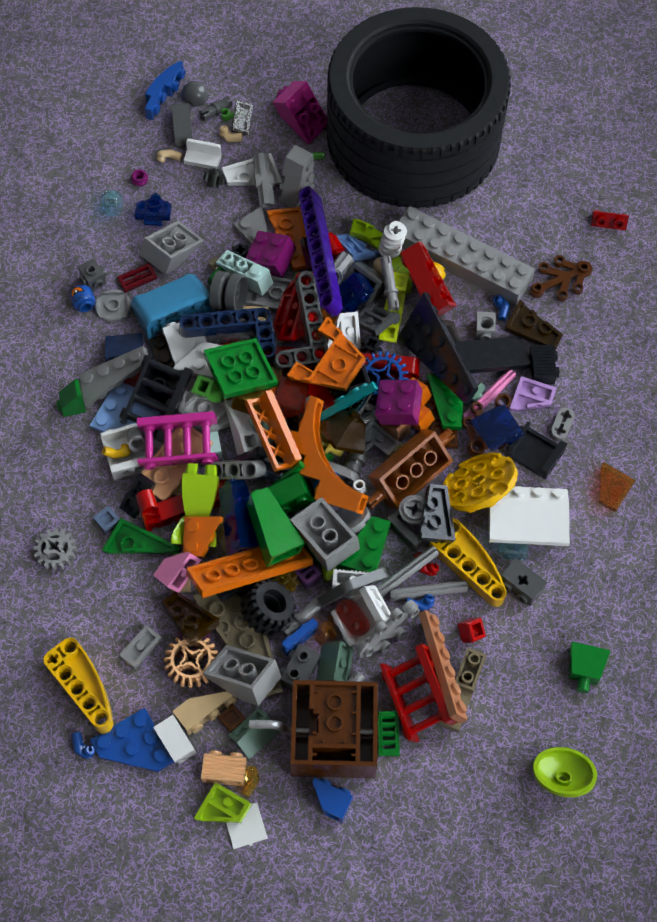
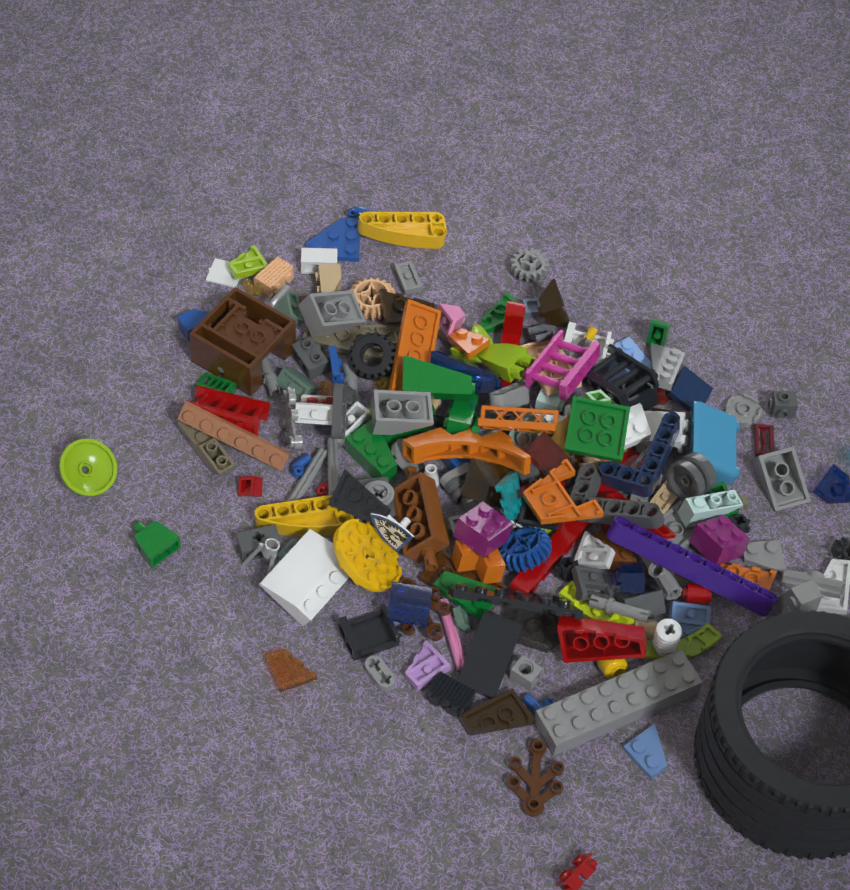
camera: 120 degrees right, 10 degrees down
(82, 298) = (762, 387): blue head -> none
(101, 494) = (552, 306): none -> dark brown slope
(439, 471) = (391, 531): none -> shield
(483, 224) = (647, 752): none -> medium blue wing
(533, 555) = (269, 551): none -> light grey plant

